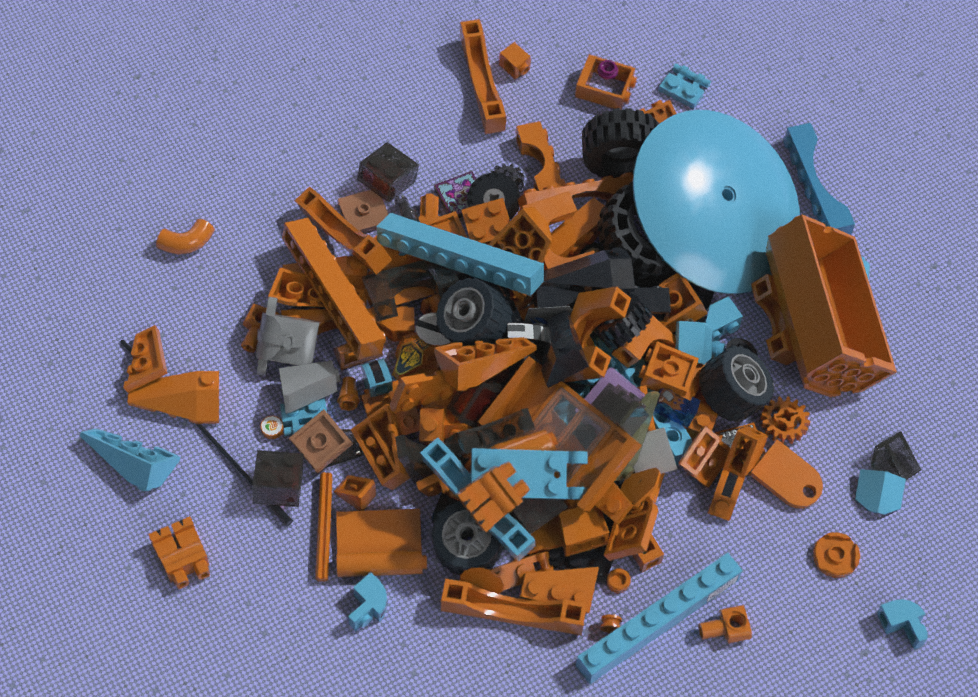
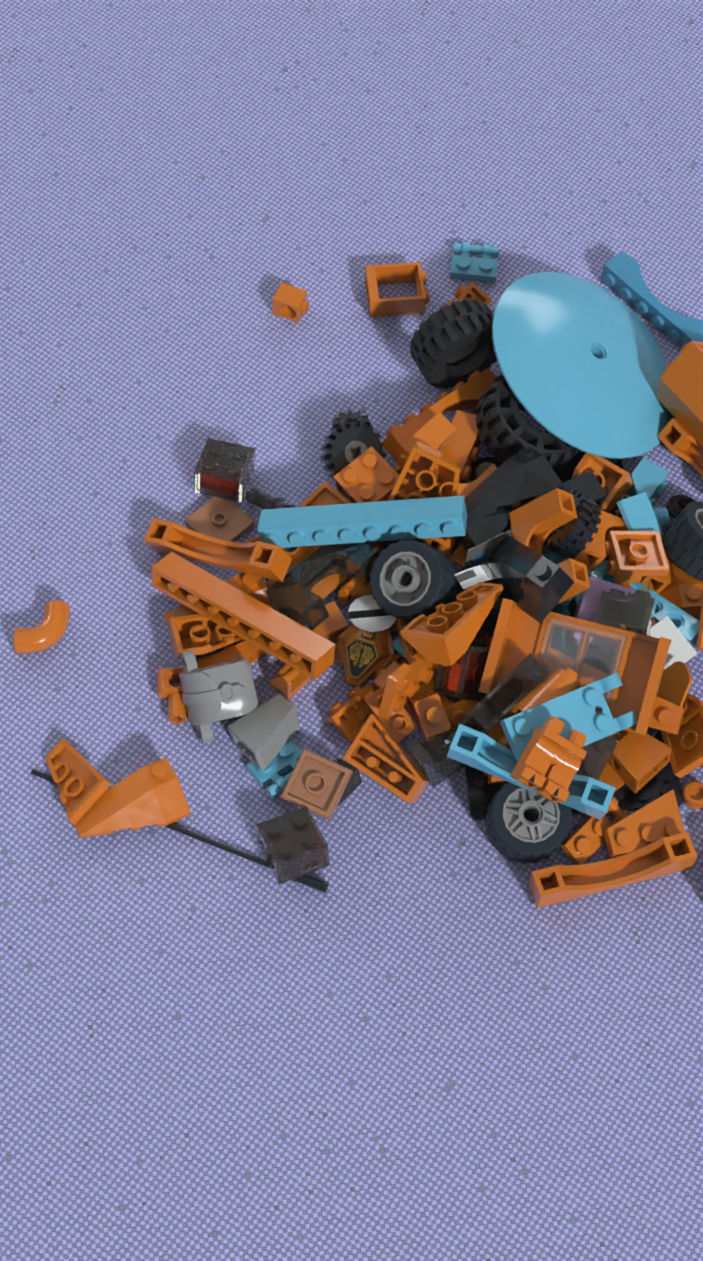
camera: 25 degrees left, 0 degrees up
(133, 462) = (129, 898): medium azure wedge -> none
(182, 561) = (230, 973): orange hips -> none
(272, 427) = (250, 793): tile -> none
(323, 528) = (366, 875): orange axle -> none
(348, 396) = (314, 724): orange cone -> none
(357, 491) = (379, 821): orange slope -> none
(373, 599) = (462, 927): medium azure brick -> none
(377, 377) = (339, 690): medium azure brick -> none
(379, 543) = (434, 866): orange door -> none
(428, 207) = (287, 489): orange piece -> none
(432, 486) = (458, 778): orange bracket -> none
(454, 192) = (305, 464): tile -> none
(483, 579) = (568, 854): orange sticker -> none
(487, 97) = (290, 357): orange arch -> none
(534, 142) = (357, 379): orange arch -> none
(607, 69) = (394, 274): magenta plate -> none
(676, 407) = (667, 590): clear blue leg -> none

